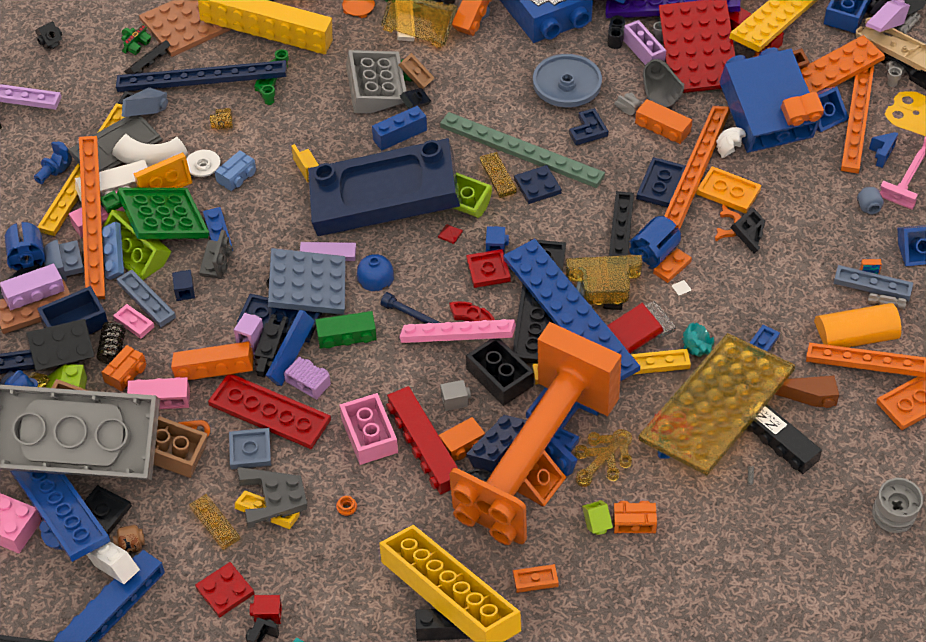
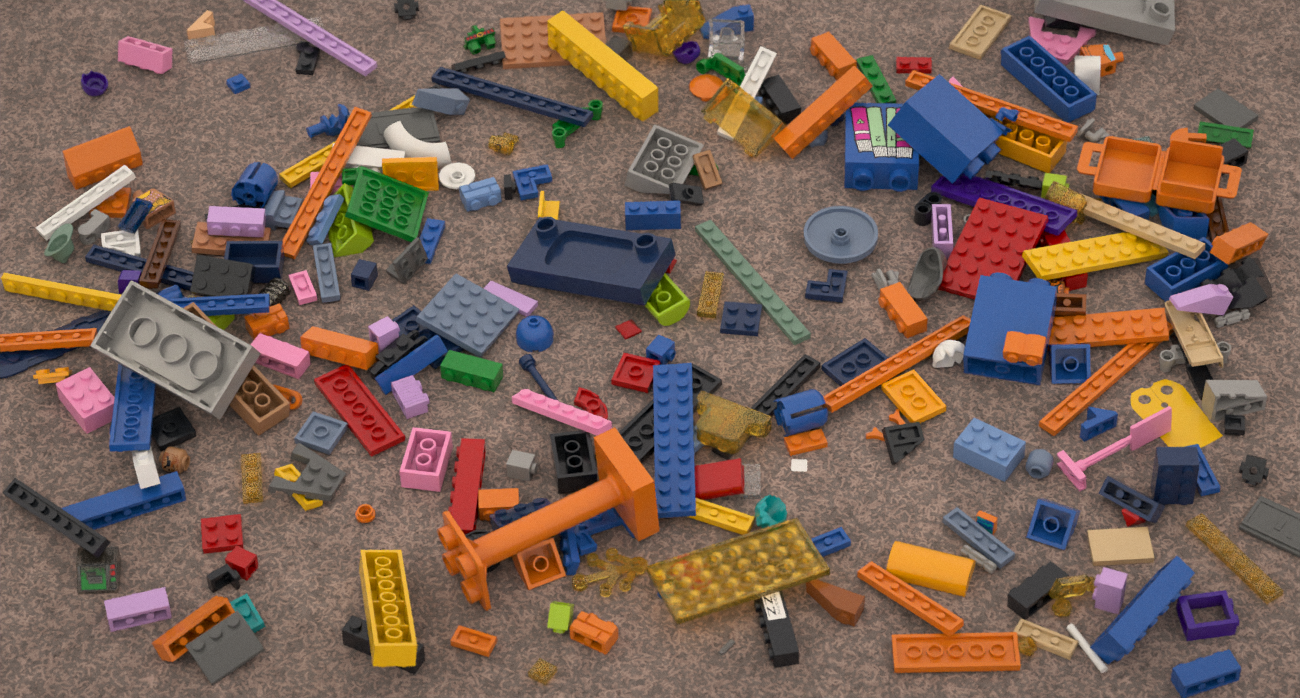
camera: 30 degrees right, 5 degrees down
(84, 366) = (228, 304): none -> blue plate
(256, 153) = (509, 187): none -> black plate
(268, 141) = (528, 178): none -> blue plate
(615, 576) = (542, 671): none -> clear yellow plate
(823, 206) = (989, 449): none -> medium blue brick

